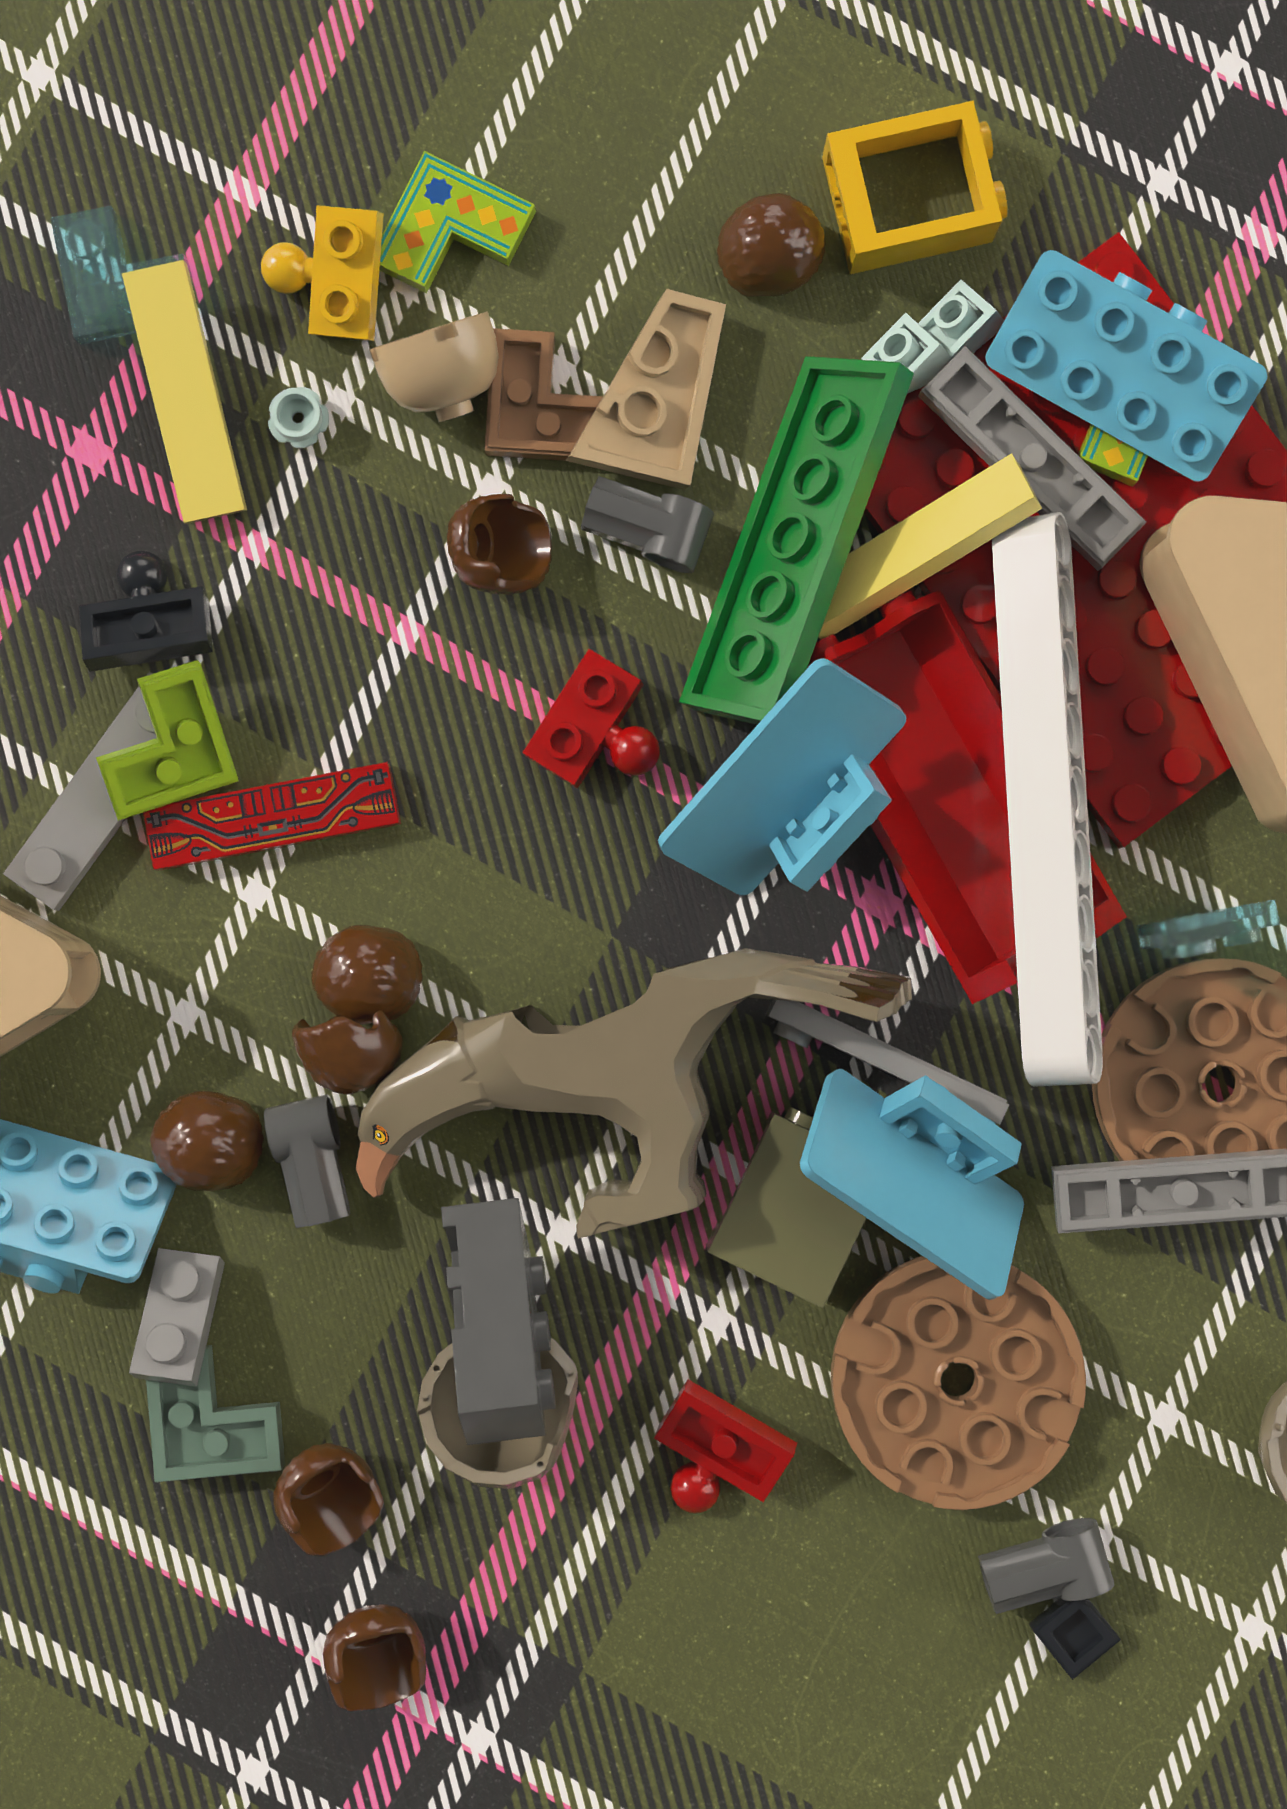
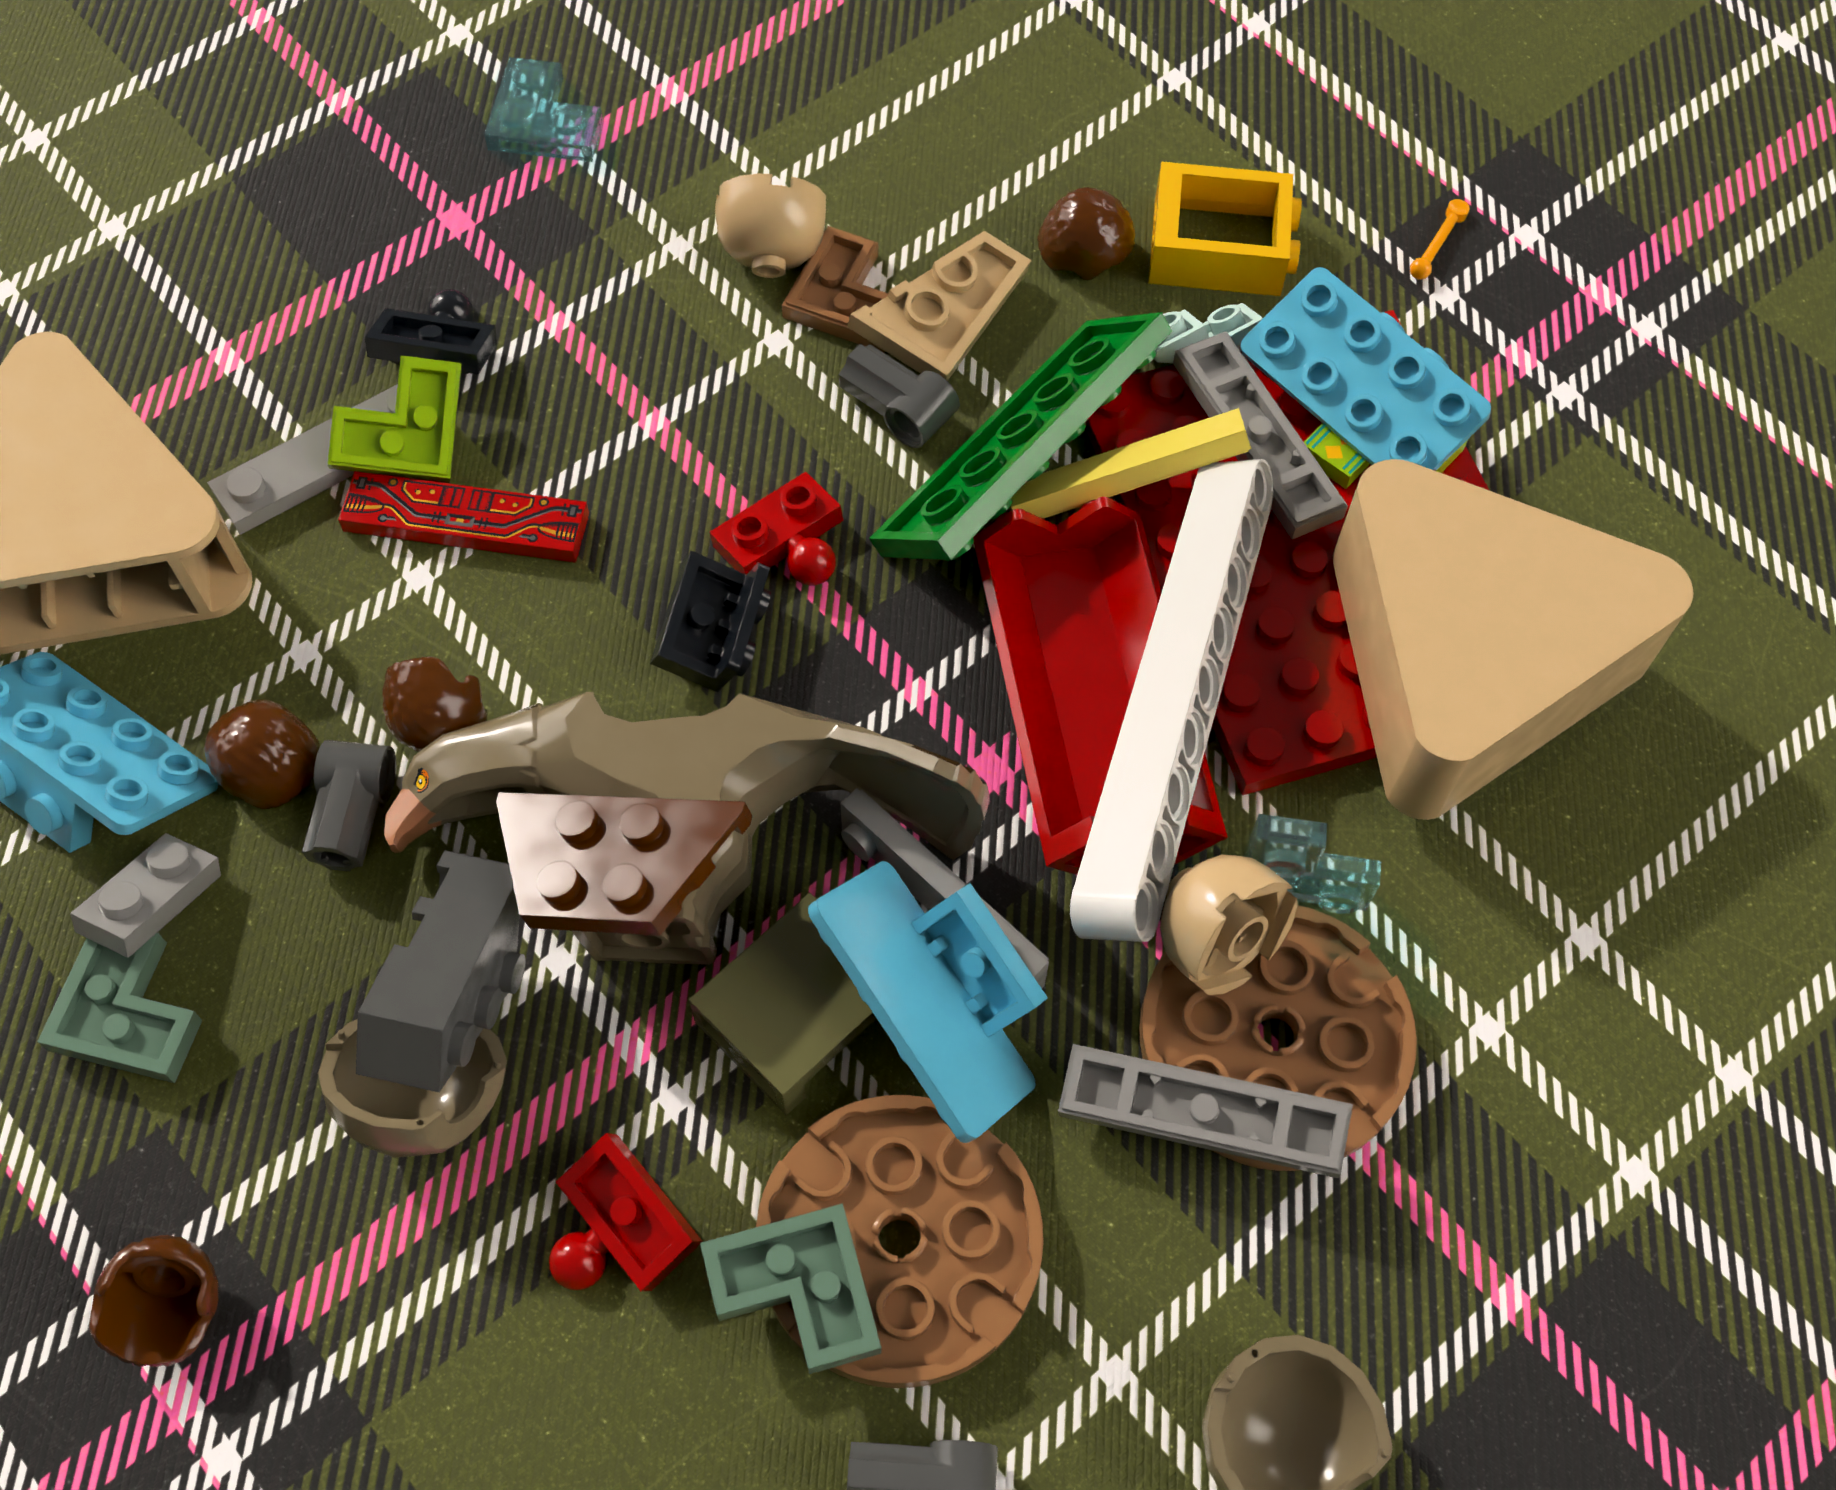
camera: 20 degrees right, 25 degrees down
(184, 391) = (552, 192): light yellow tile -> none
(297, 401) = (636, 237): light aqua plate -> none
(327, 1498) = (194, 1115): reddish brown hair -> none
(340, 273) = (721, 150): yellow plate -> none
(367, 972) = (493, 652): reddish brown hair -> none
(446, 206) = (830, 140): lime tile -> none
(499, 544) = (760, 364): reddish brown hair -> none
(567, 853) = (711, 621): none -> black bracket
(601, 1178) = (610, 858): none -> wing
(792, 787) = (936, 606): medium azure bracket -> none
(902, 1445) = (802, 1262): none -> sand green plate
(1147, 64) = (1455, 213): none -> light orange hinge
(1153, 1020) = (1224, 917): none -> tan cylinder

